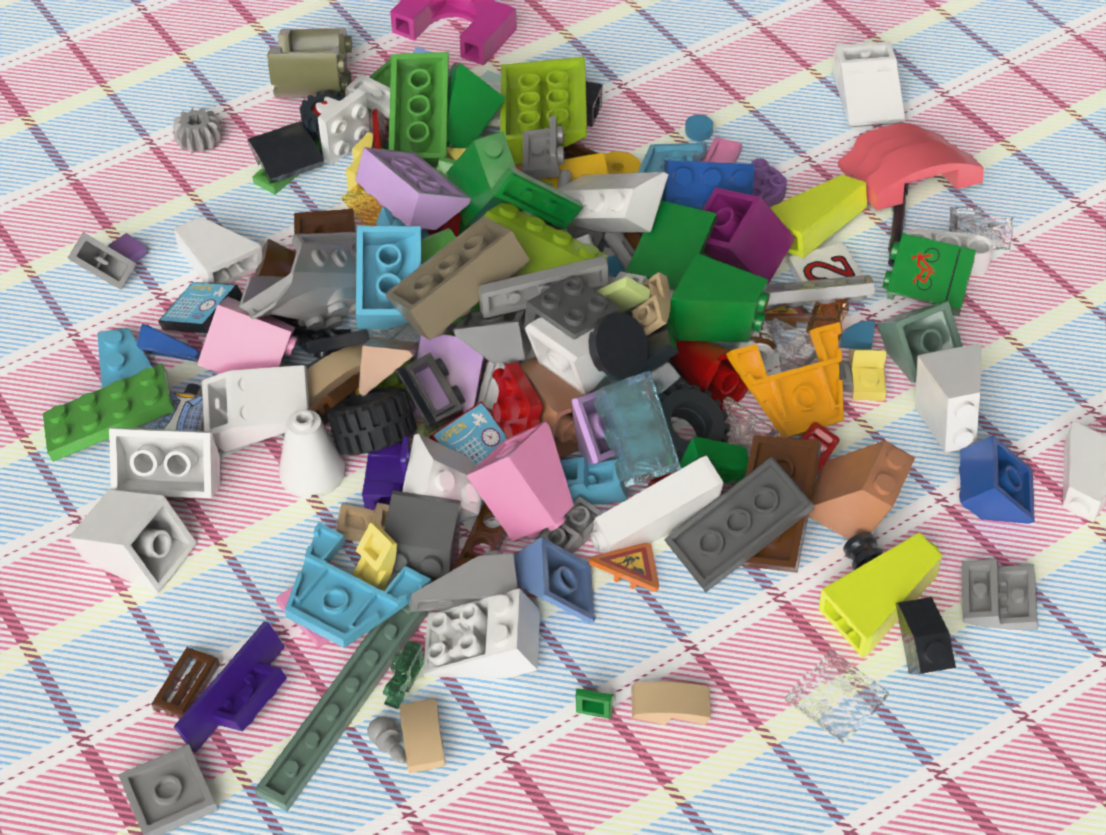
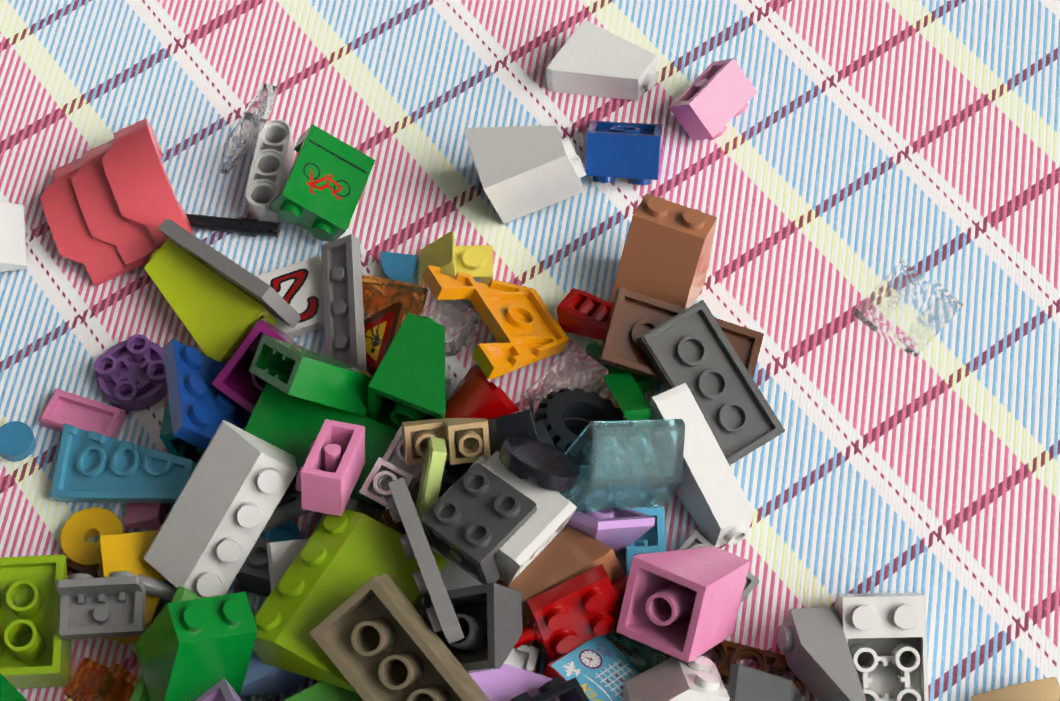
camera: 90 degrees left, 10 degrees up
(537, 198) = (253, 580): green tile -> none
(556, 577) = (799, 577): medium blue slope -> none
(594, 703) = (945, 533): green slope -> none
(629, 240) = (332, 467): none -> bright pink brick
(631, 564) = (773, 498): piece -> none
(666, 700) = (939, 460): tan slope -> none
(714, 227) = (311, 375): none -> green slope
(833, 215) = (231, 272): none -> light grey tile
(861, 549) = (728, 273): black wheel -> none
(866, 599) = (779, 260): neon yellow slope -> none
(919, 333) = (416, 205): sand green slope -> none
(924, 636) = (846, 217): black slope -> none
(999, 595) = (764, 159): light grey slope -> none
(1056, 548) = (713, 100): none -> bright pink brick

